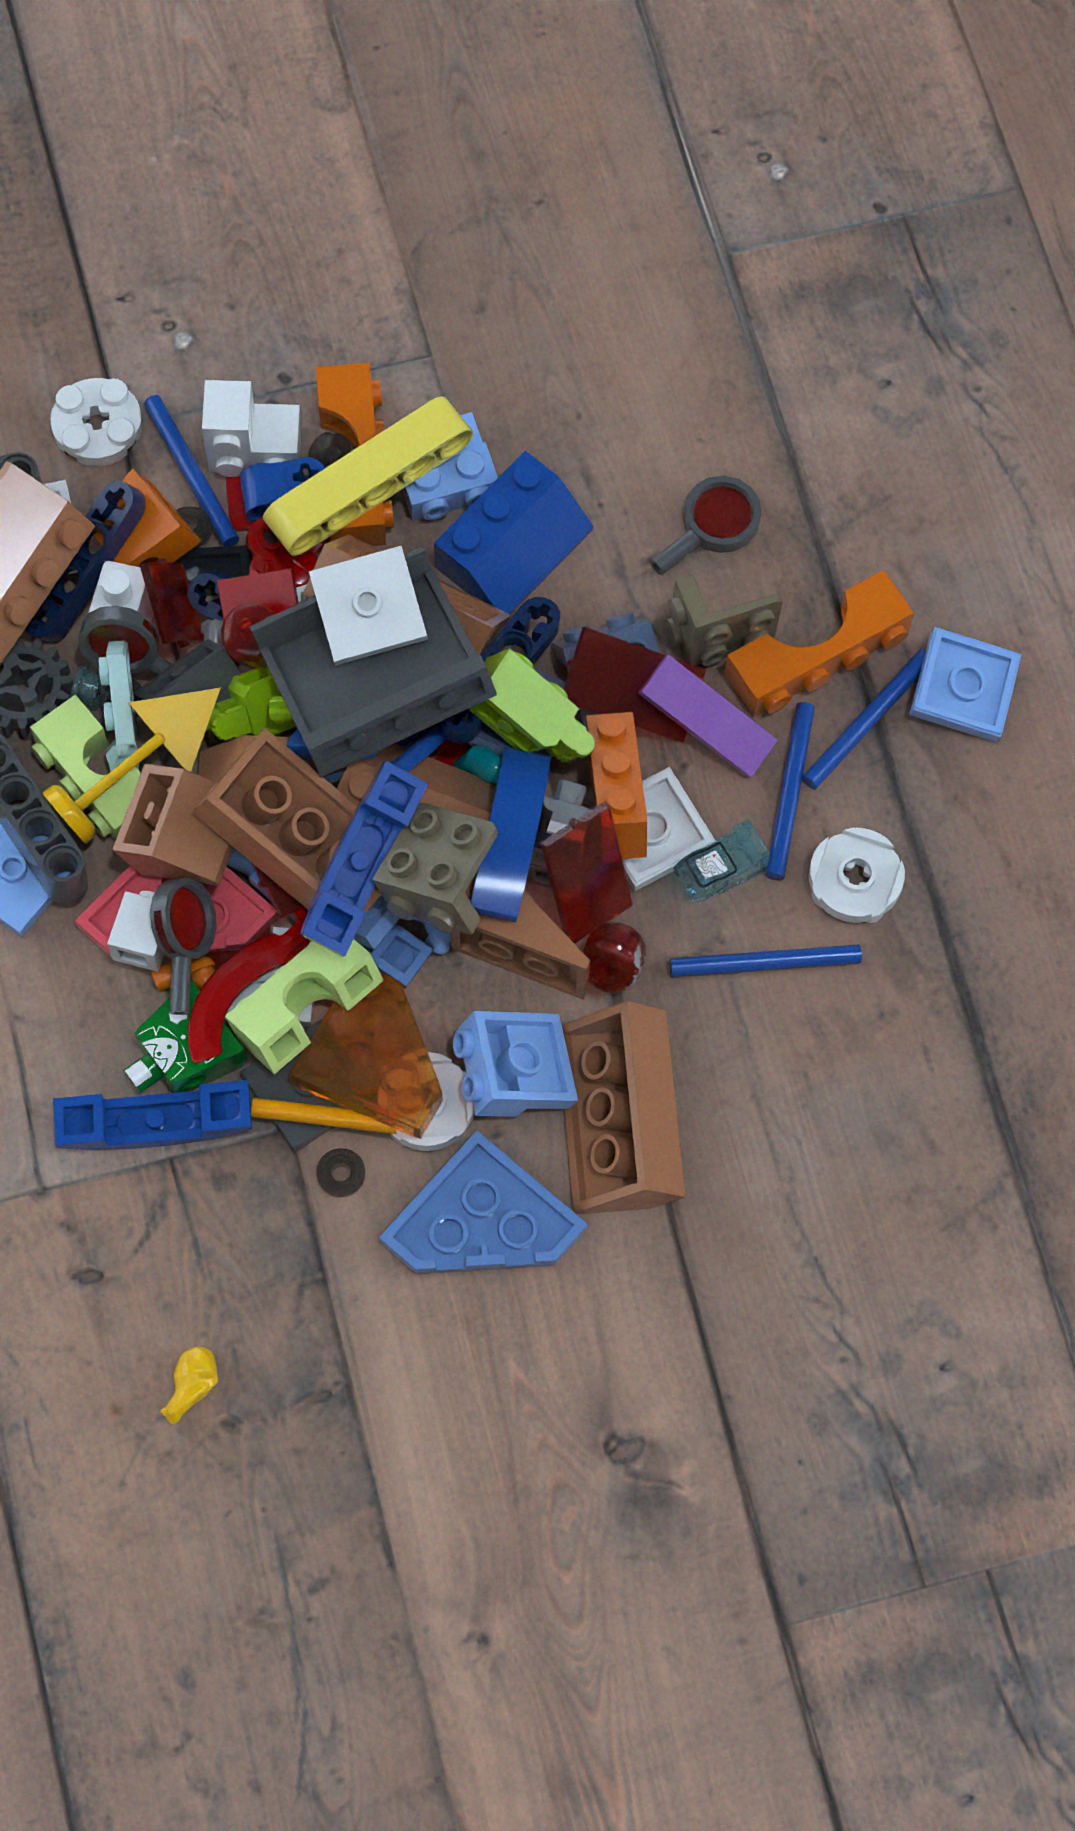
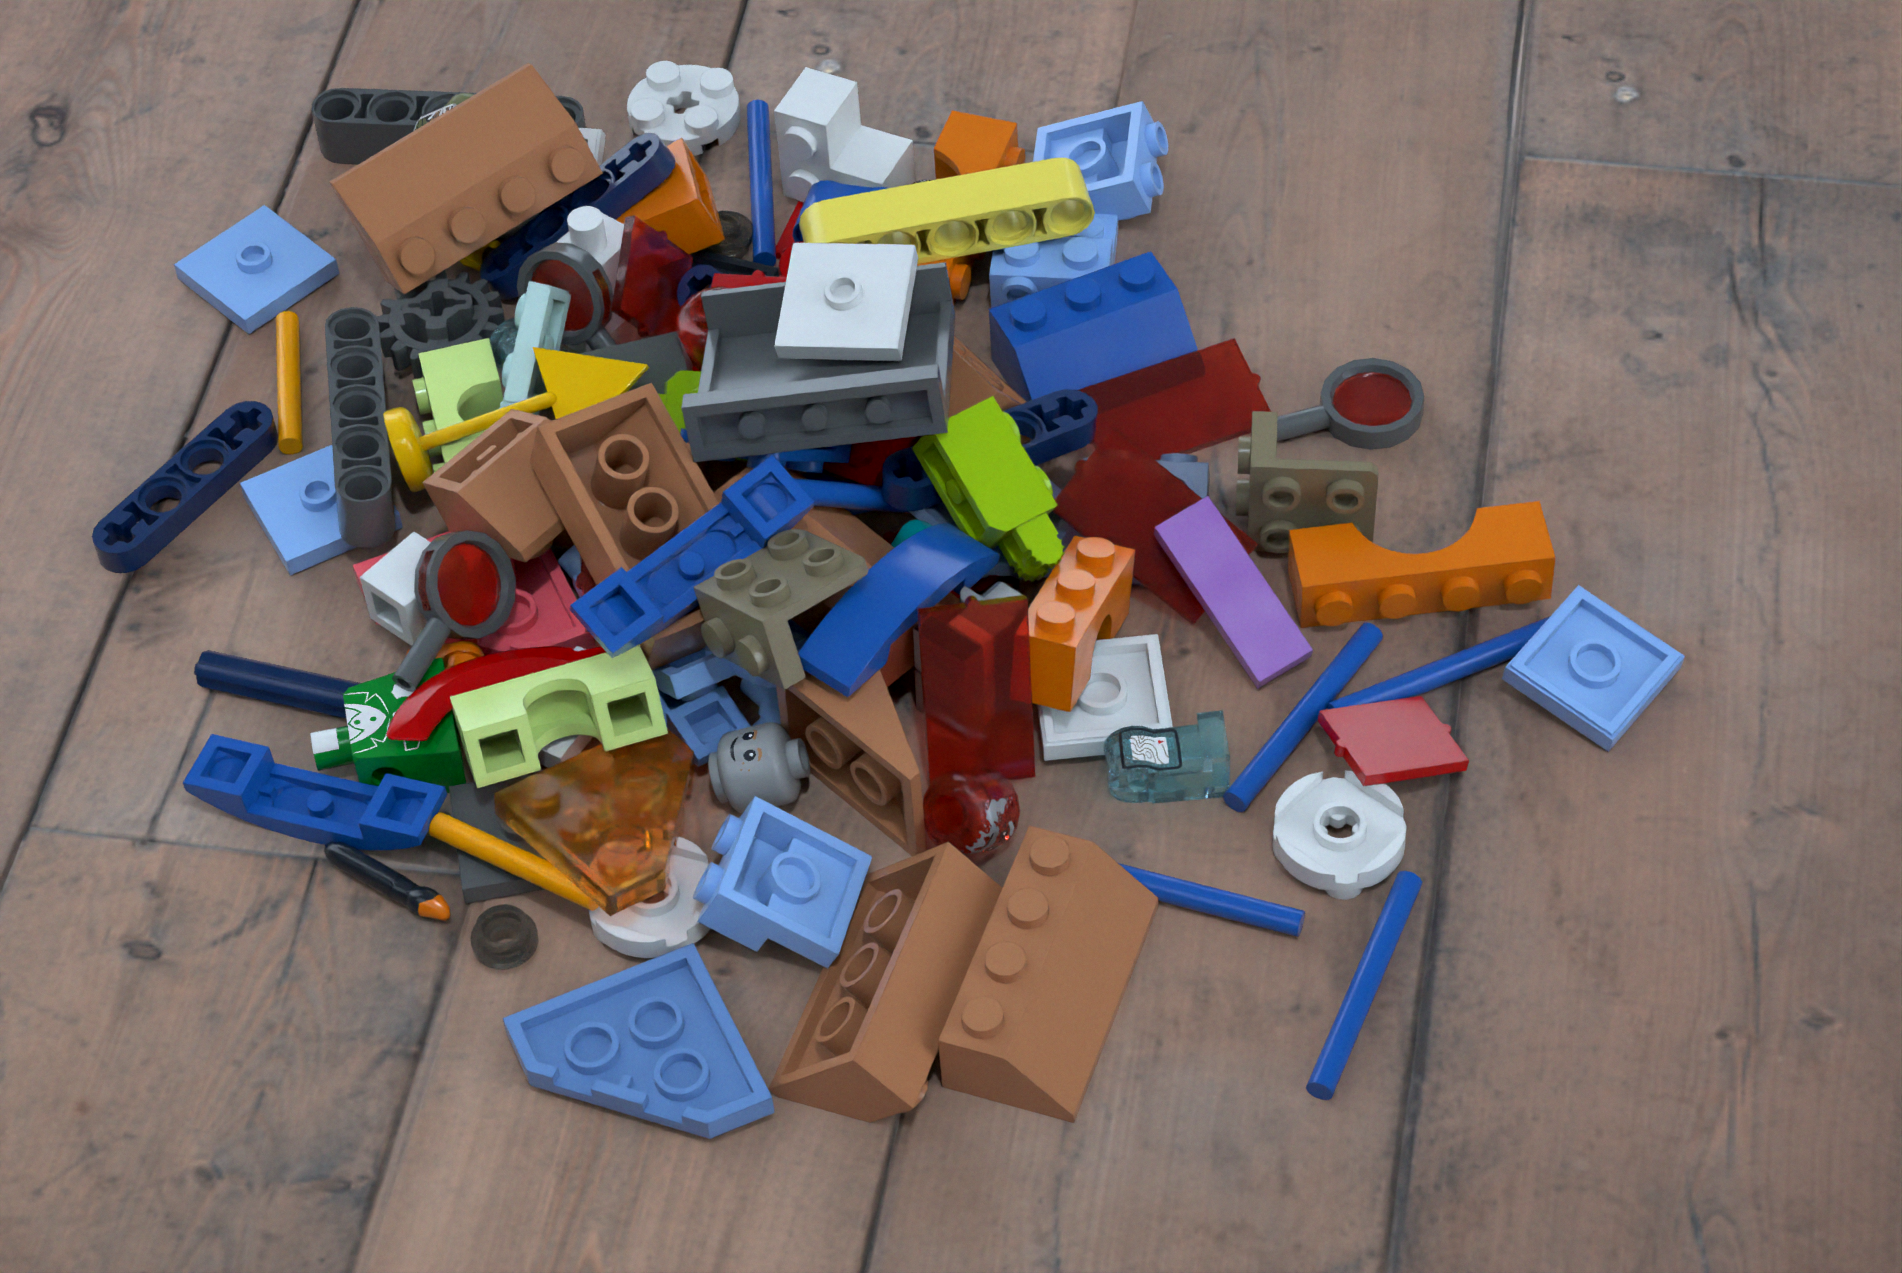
camera: 30 degrees right, 20 degrees down
(71, 1033) = (272, 682): none -> dark blue axle
(193, 1380) = (187, 1105): yellow animal -> none
(235, 1159) = (419, 899): none -> black piece
(439, 364) = (1115, 156): none -> light blue plate
(450, 976) = (759, 764): none -> light grey head
(591, 566) = (1181, 401): none -> clear red piece
(720, 1061) = (1047, 977): none -> nougat slope
(861, 792) = (1392, 740): none -> piece
(920, 983) = (1364, 986): none -> blue bar

